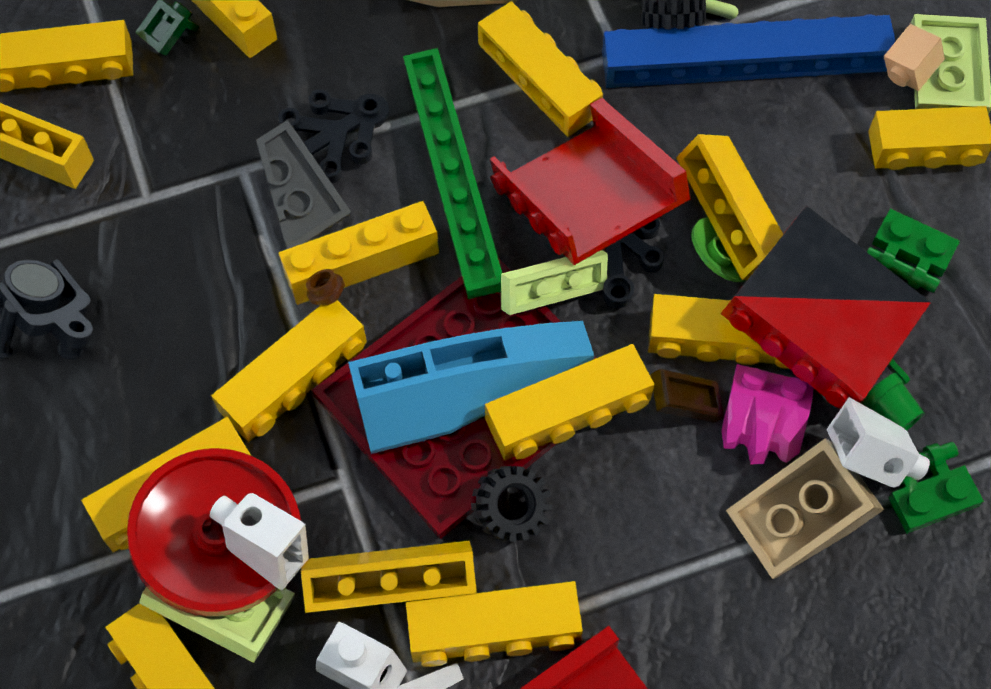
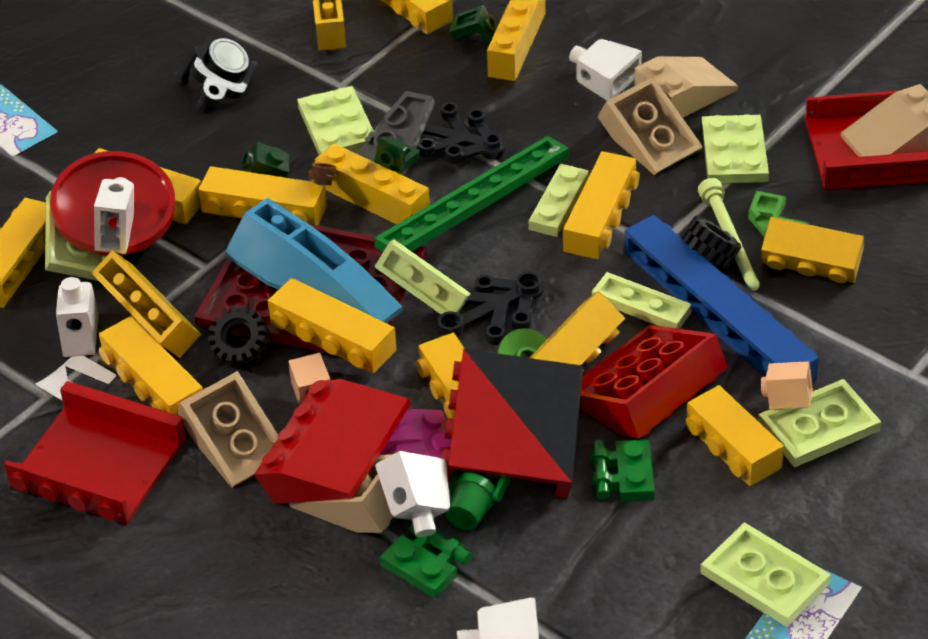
camera: 60 degrees right, 20 degrees down
(213, 233) = (335, 119): none -> yellowish green plate
(228, 336) = (266, 160): none -> dark green bracket
(346, 203) = (395, 154): none -> dark green bracket
(495, 100) = (558, 200): none -> yellowish green plate
(594, 186) = (511, 265): red panel -> none
(616, 465) = (305, 372): none -> light nougat brick
(643, 582) = (229, 428): none -> tan slope
(687, 396) = (384, 375): dark brown tile -> none
(699, 111) = (643, 301): none -> yellowish green plate
(749, 490) = (330, 442): none -> red slope
(810, 155) = (650, 378): none -> red slope

